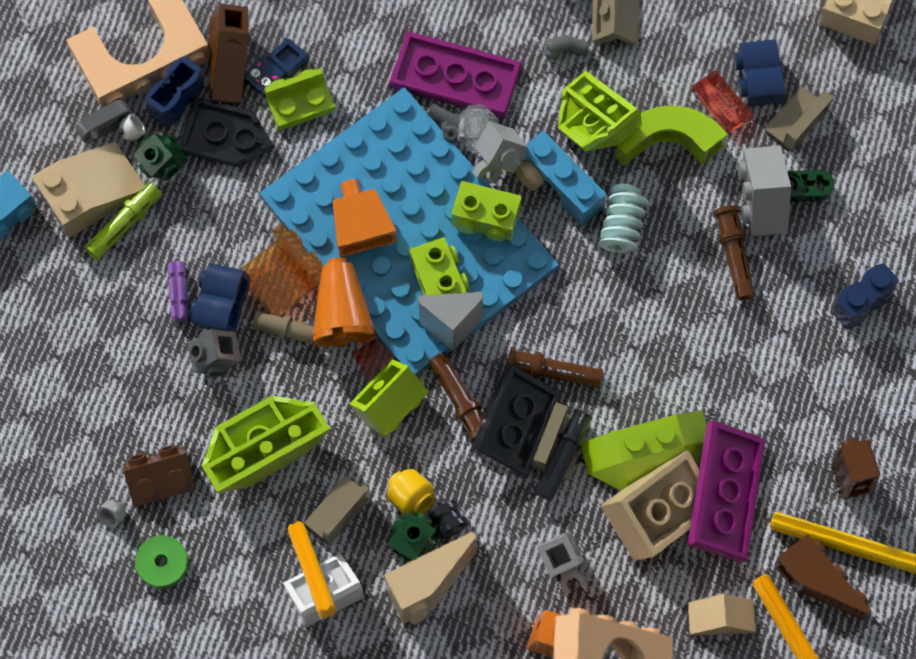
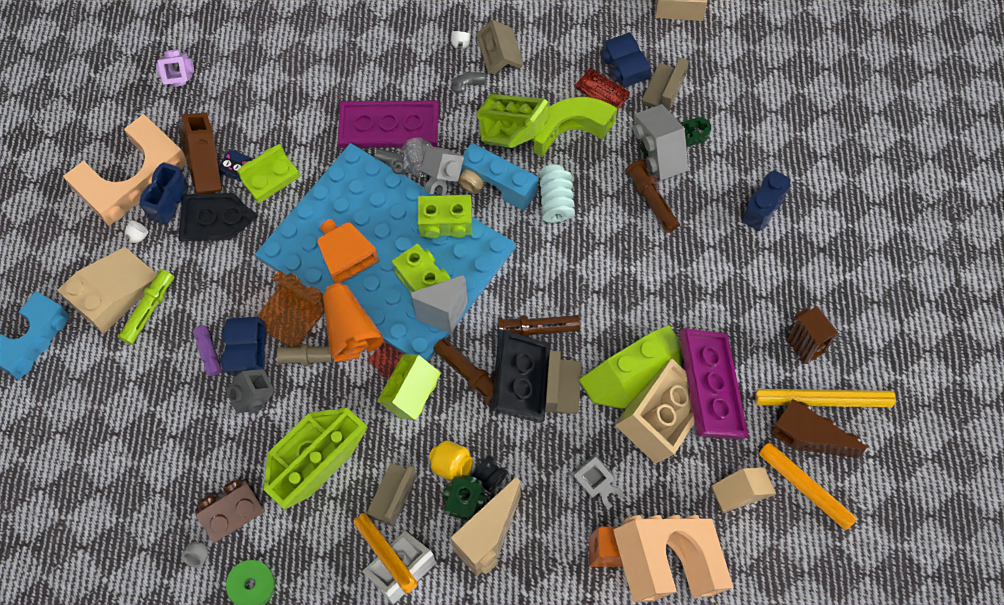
camera: 15 degrees left, 5 degrees down
(102, 121) = (109, 233): dark grey beam -> none
(160, 156) = (164, 246): dark green brick -> none
(288, 57) = (251, 145): dark blue tile -> none
(563, 455) = (569, 390): black axle -> none

